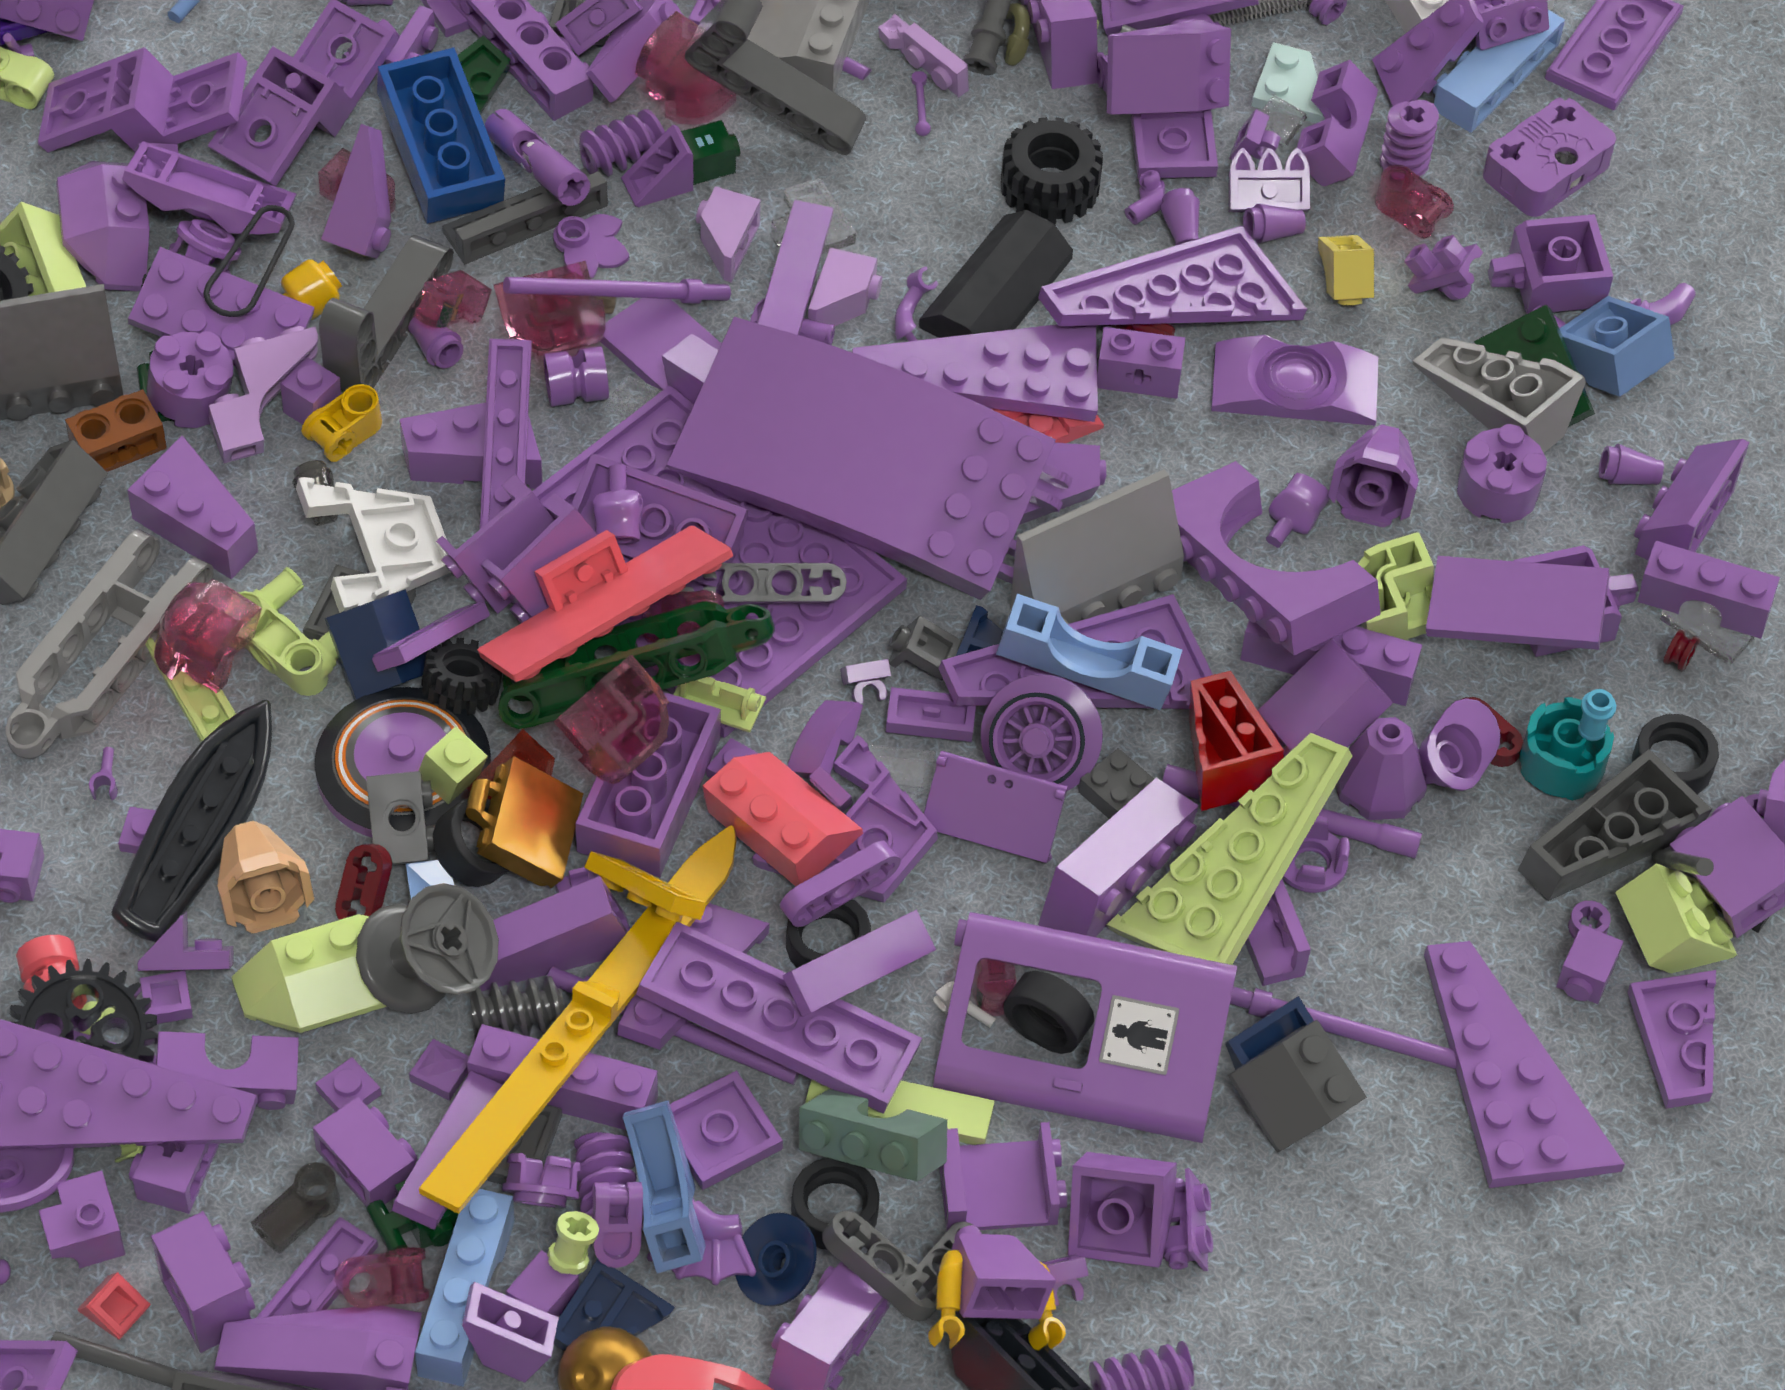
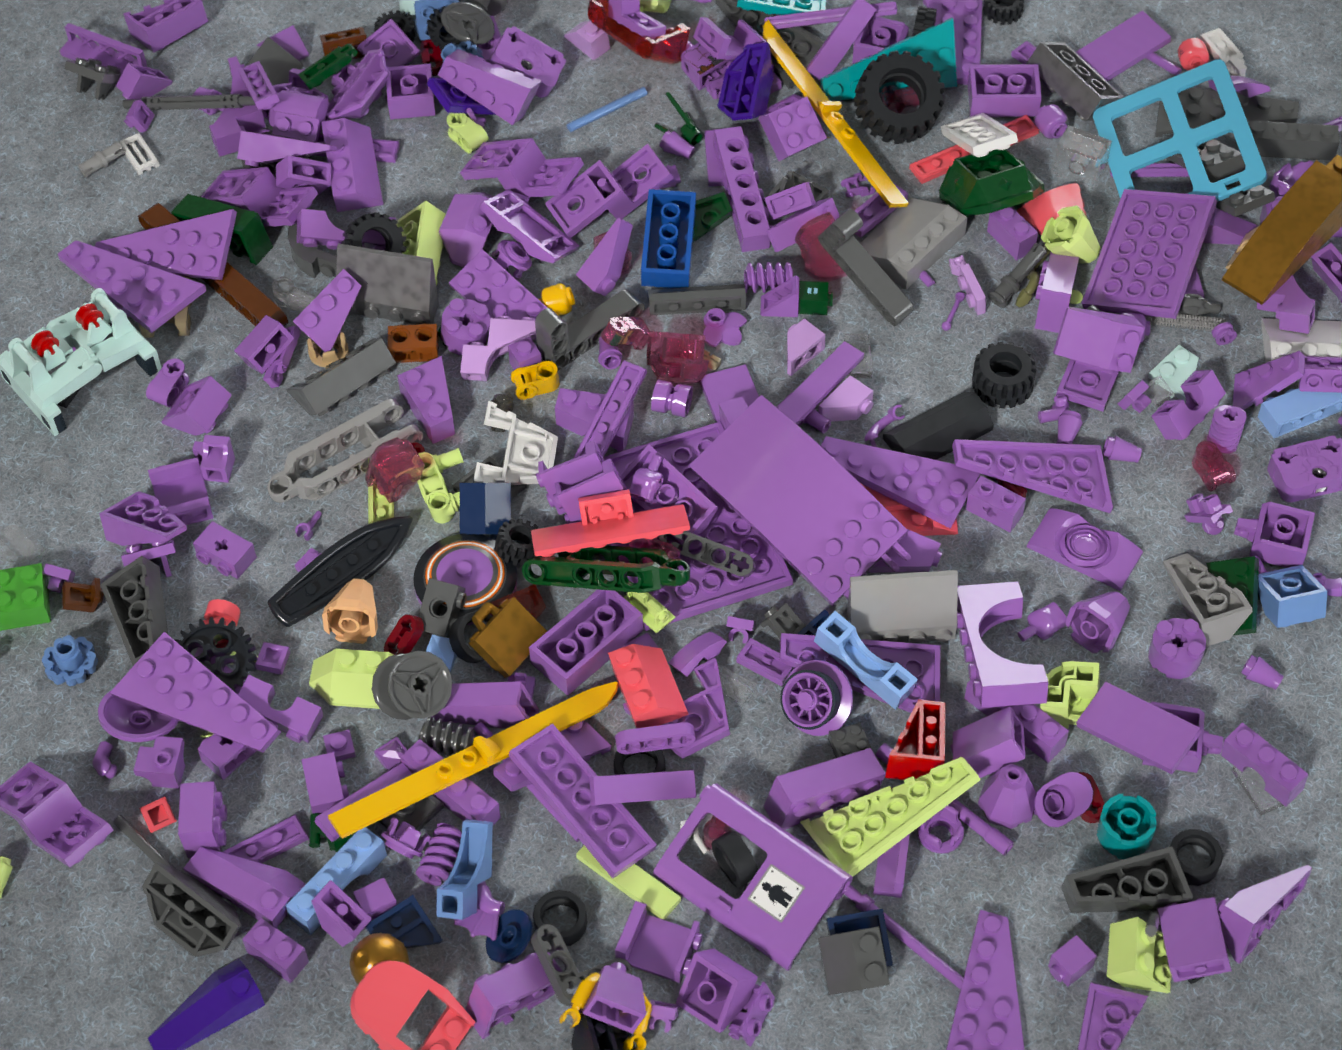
camera: 30 degrees right, 0 degrees up
(173, 953) = (290, 635): medium lavender slope -> none
(232, 251) = (519, 265): black piece -> none
(295, 1209) = (274, 800): clear smoke piece -> none
(394, 1278) = (298, 858): clear pink piece -> none
(416, 37) = (688, 181): medium lavender plate -> none
(430, 636) = (512, 513): medium lavender tile -> none
(452, 764) = (482, 588): yellowish green brick -> none
(531, 151) = (714, 268): medium lavender piece -> none
(574, 1237) = (400, 876): yellowish green bush -> none
(618, 722) = (574, 598): clear pink brick -> none
(618, 1237) = (425, 886): medium lavender plate -> none
(645, 888) = (547, 697): yellow plate -> none
(688, 290) = (760, 372): medium lavender bar -> none
(723, 1130) = (520, 850): medium lavender plate -> none
(831, 789) = (683, 683): medium lavender tile -> none
(900, 1145) = (605, 901): sand green arch -> none
(992, 814) = (774, 735): medium lavender door -> none
(1269, 182) = (1129, 426): plate -> none
(1347, 268) = (1149, 492): light yellow arch -> none
(1589, 909) = (1093, 928): medium lavender bush -> none
(1597, 709) = (1146, 810): medium azure pin -> none
(1681, 650) = (1233, 794): dark red bush -> none
(1694, 499) = (1287, 708): medium lavender slope -> none

